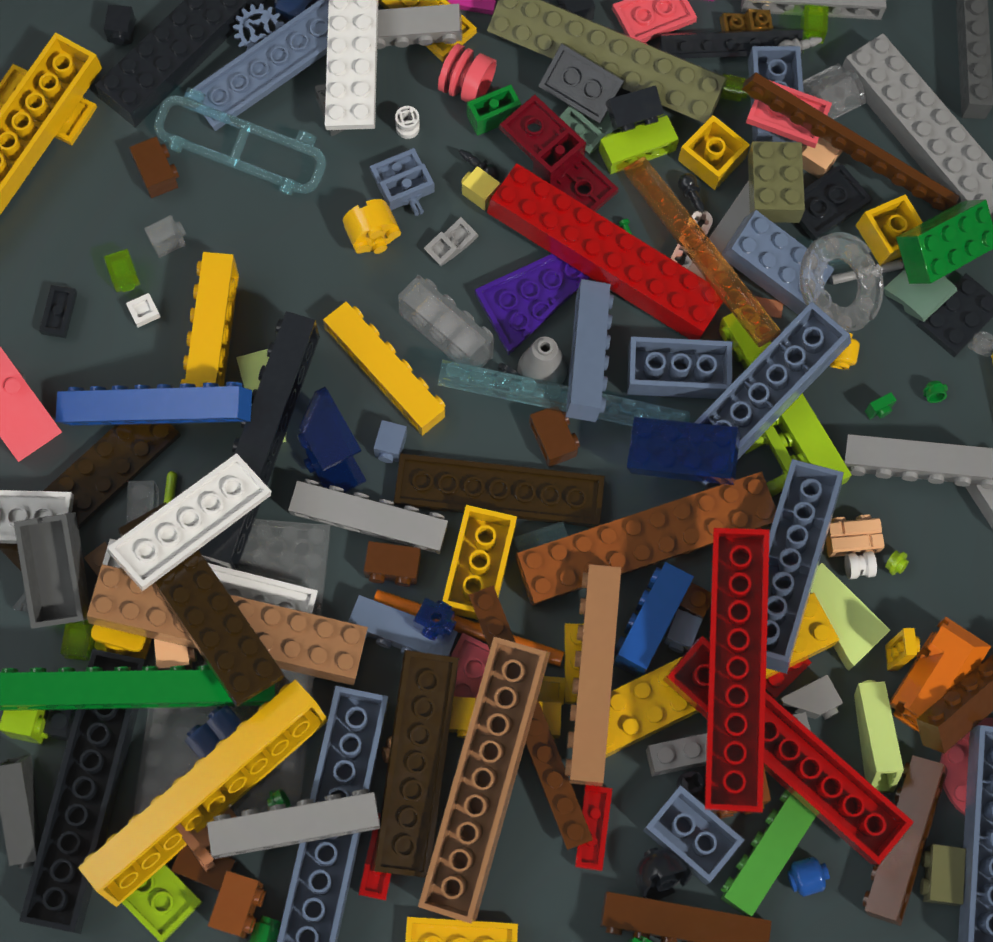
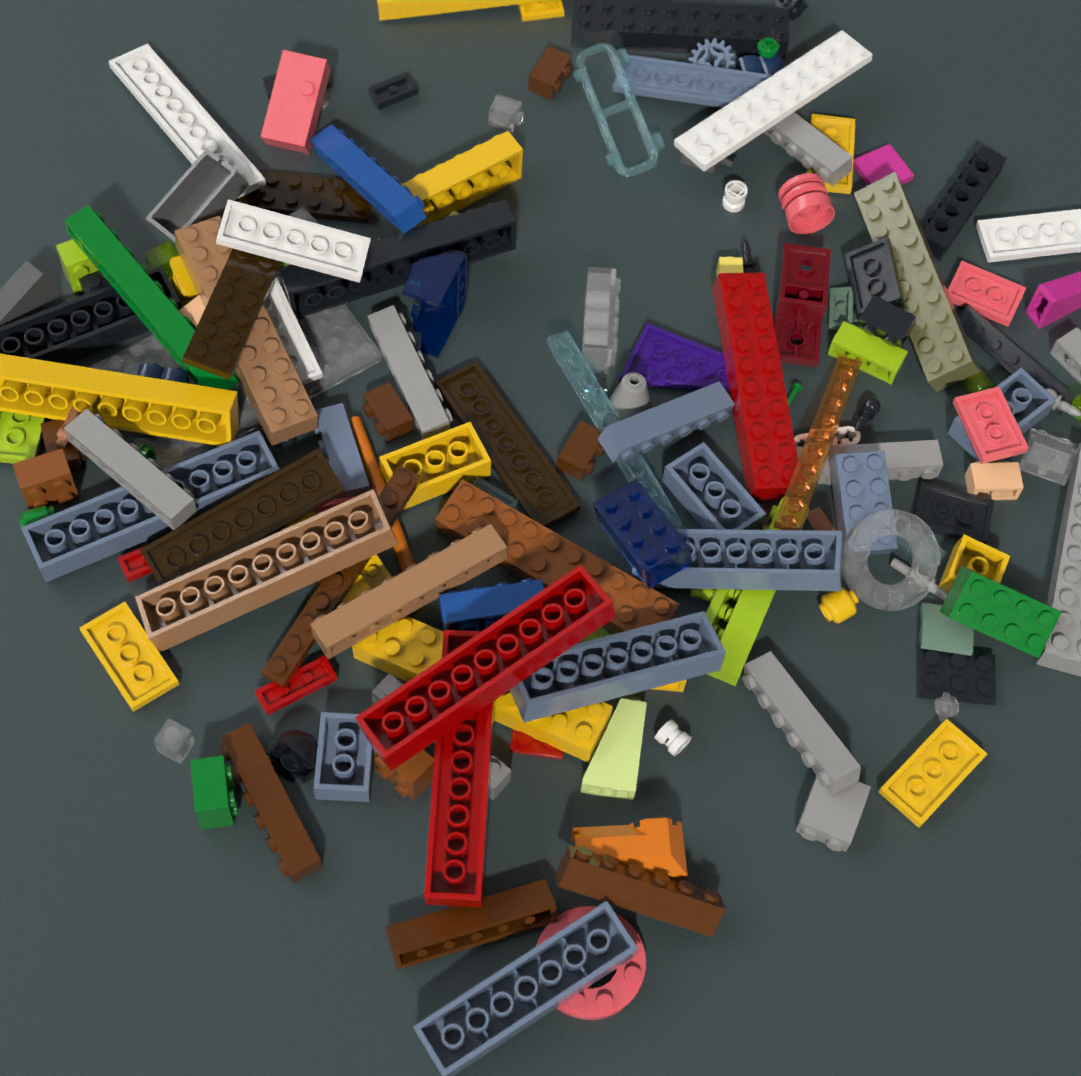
camera: 50 degrees right, 10 degrees down
(122, 270) = (456, 106): clear neon green brick -> none
(143, 310) = (439, 137): white plate -> none
(371, 226) = (629, 224): yellow brick -> none
(384, 368) = (532, 308): yellow brick -> none
(390, 441) = (479, 348): sand blue brick -> none
(403, 180) = (687, 224): sand blue plate -> none
(430, 611) = (362, 457): clear blue brick -> none
(452, 242) = (671, 288): light grey slope -> none
(492, 109) = (796, 233): green brick -> none
(713, 152) = (911, 404): yellow brick -> none
(751, 20) = (1050, 362): pearl gold slope -> none
(768, 855) = (370, 827): bright green brick -> none
(776, 180) = (926, 455): olive brick -> none
(808, 876) = (381, 869): blue head -> none
(815, 699) = (531, 776): light grey slope -> none
(849, 142) = (1005, 473): reddish brown plate -> none
(854, 536) = (692, 716): light nougat brick -> none
(878, 736) = (537, 844): yellowish green slope -> none
(881, 406) = (819, 664): green plate -> none
(897, 562) = (700, 764): lime plate -> none
(902, 649) = (623, 804): yellow plate -> none
(935, 391) = (871, 698): green plate -> none
(943, 875) = (464, 973): olive brick -> none

